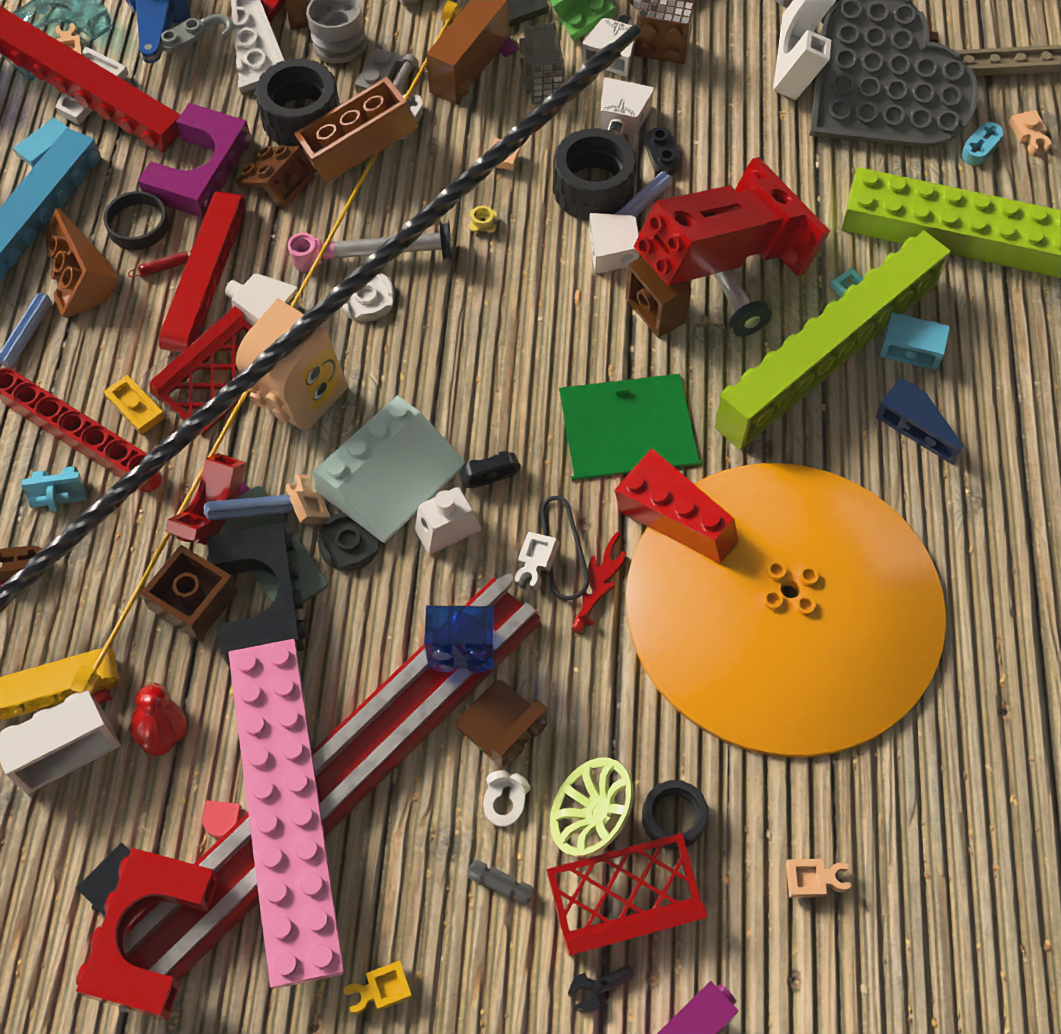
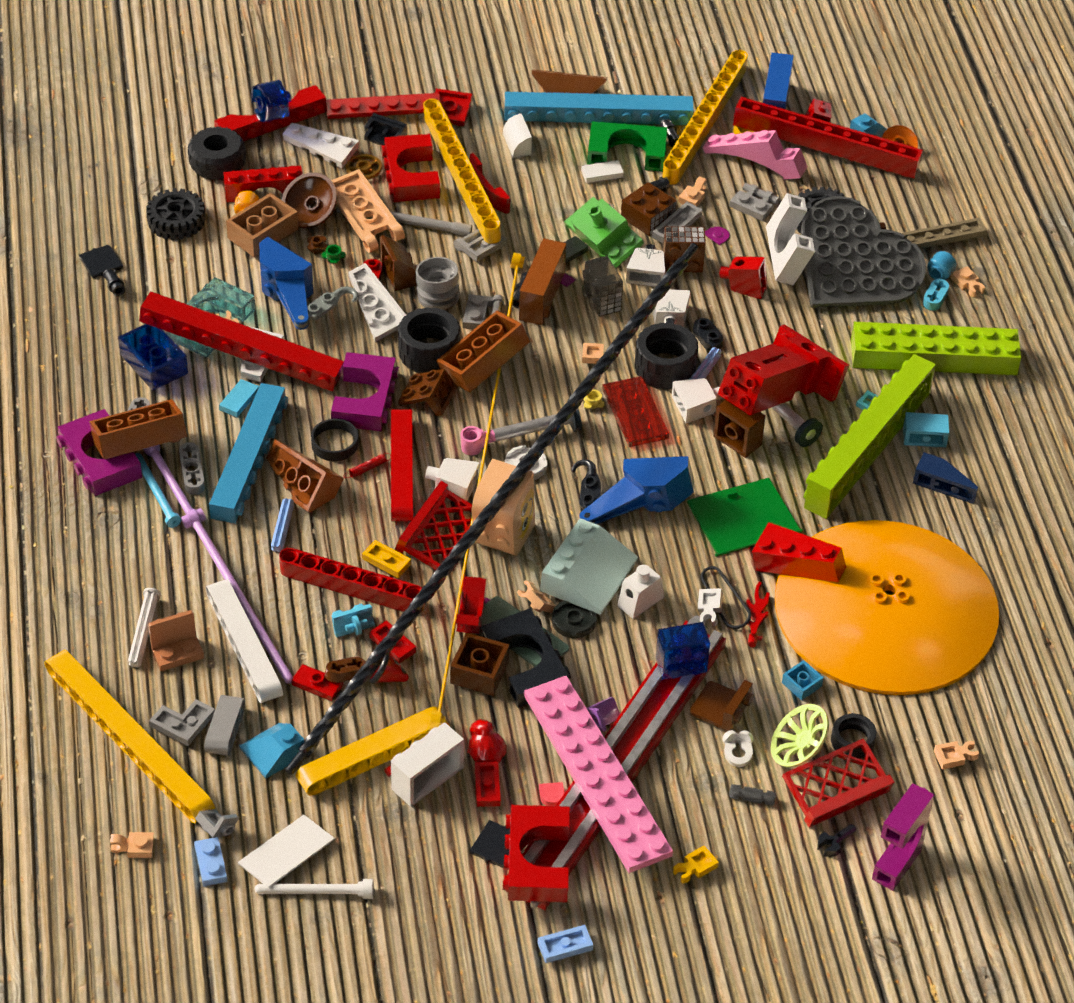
camera: 15 degrees left, 15 degrees down
(70, 576) = (389, 671): none -> red hat
(101, 540) = (401, 650): none -> red plate
(136, 785) = (487, 784): none -> red plate
(248, 507) = (501, 605): light blue axle -> none
(332, 704) = (604, 713): none -> medium lavender bracket
(489, 470) = (659, 556): black plate -> none
(505, 357) = (648, 482): none -> blue slope
(533, 246) = (635, 411): none -> clear red tile
(629, 704) = (802, 680): none -> dark azure piece
(719, 15) = (717, 234): none -> magenta piece
(736, 78) = (746, 276): none -> red torso
(1000, 104) = (941, 265): none -> dark azure head

